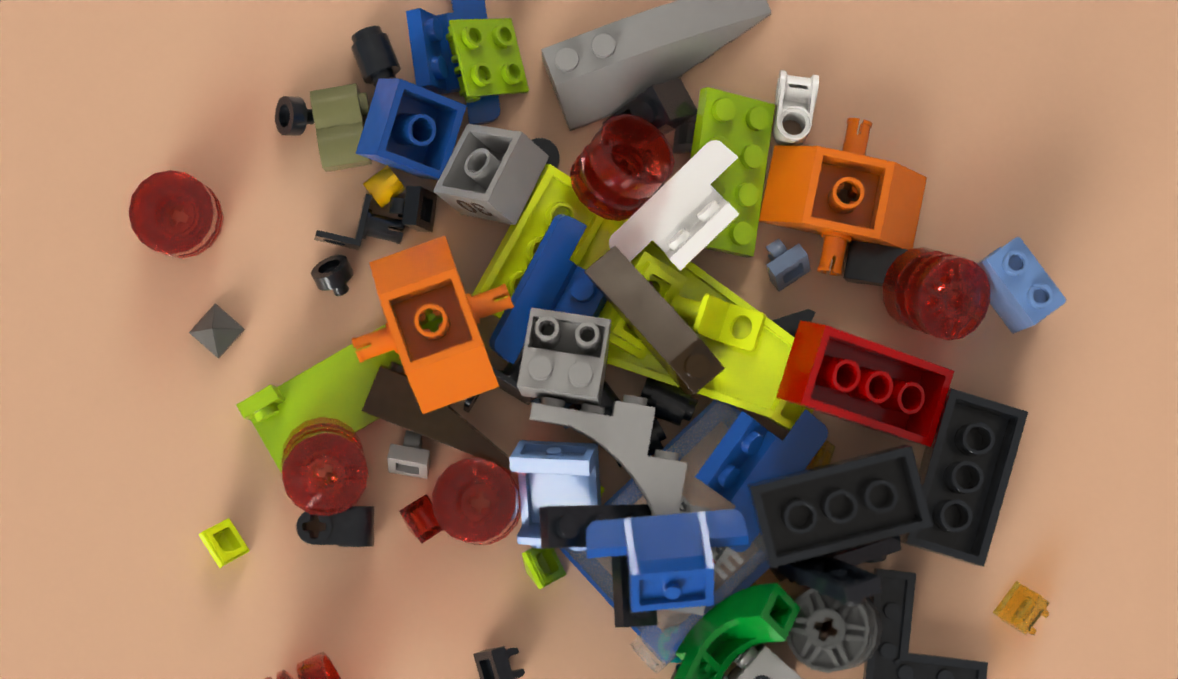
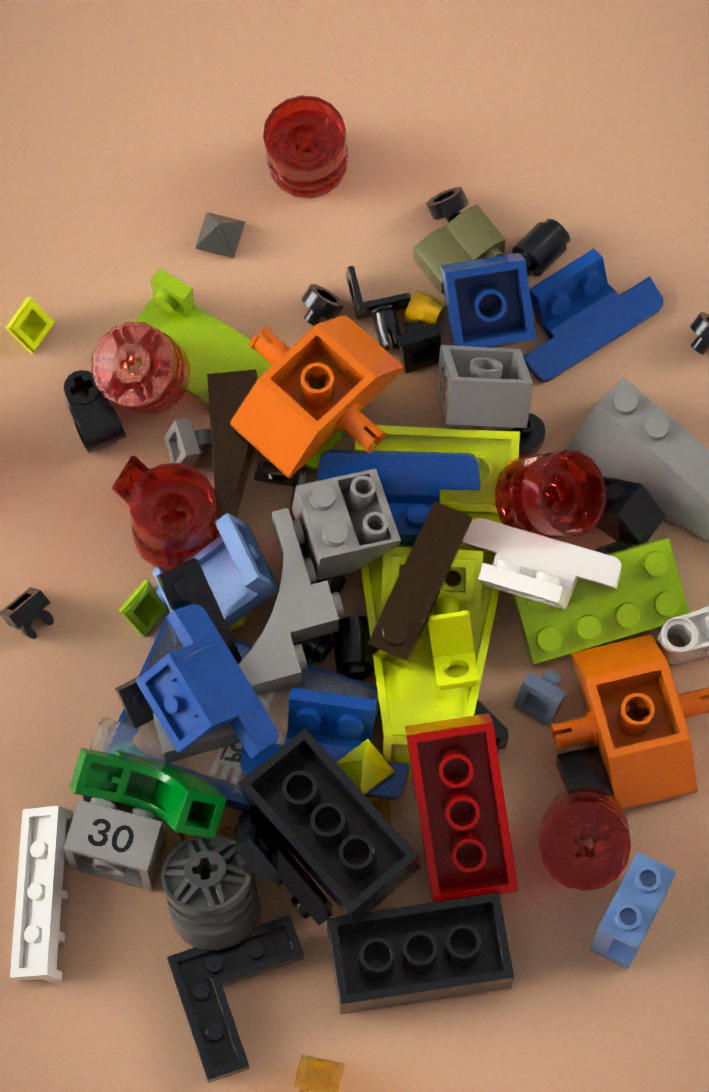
camera: 65 degrees right, 15 degrees down
(486, 57) = (592, 341): lime hinge -> none
(792, 448) = (365, 766): none -> neon yellow slope

